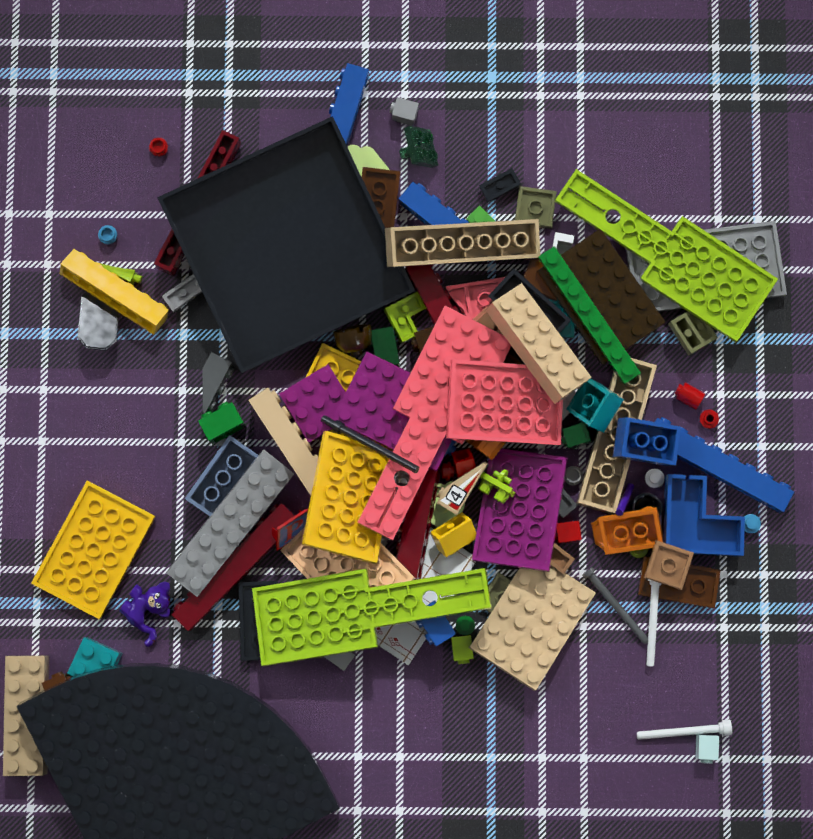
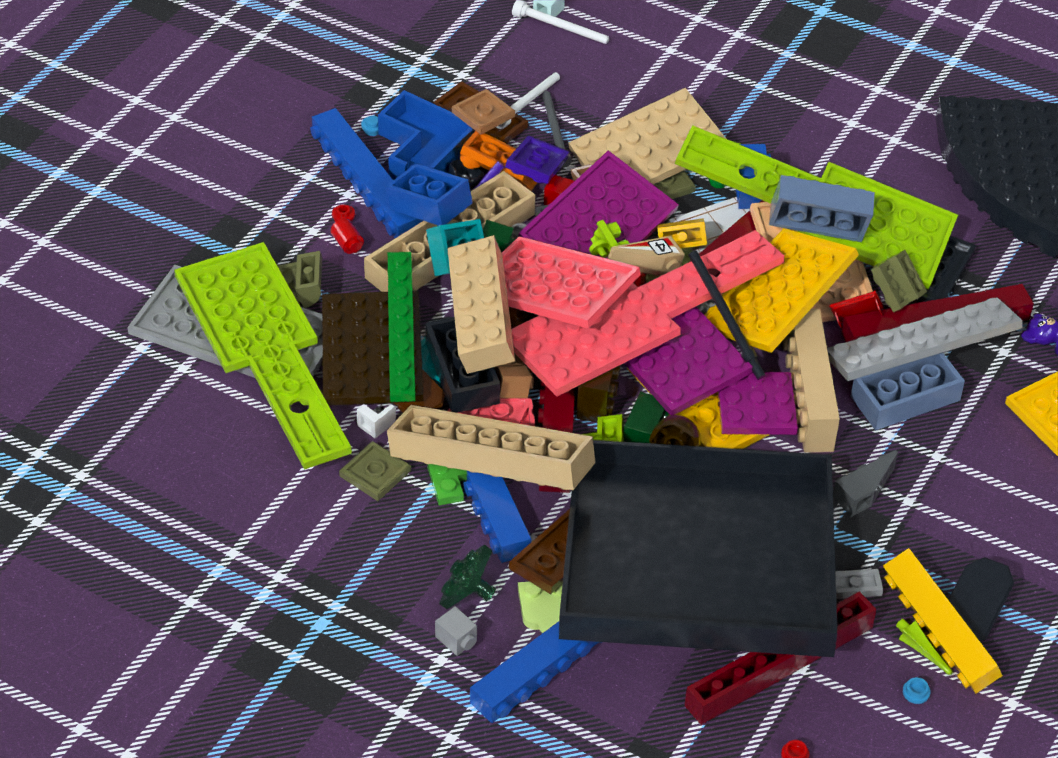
camera: 150 degrees left, 35 degrees down
(221, 422) = (880, 430): green brick -> none
(274, 567) = (898, 280): none -> olive brick
(352, 581) = (821, 208): none -> sand blue brick
(500, 185) = (399, 506): black plate -> none
(598, 540) = (537, 160): none -> dark purple plate

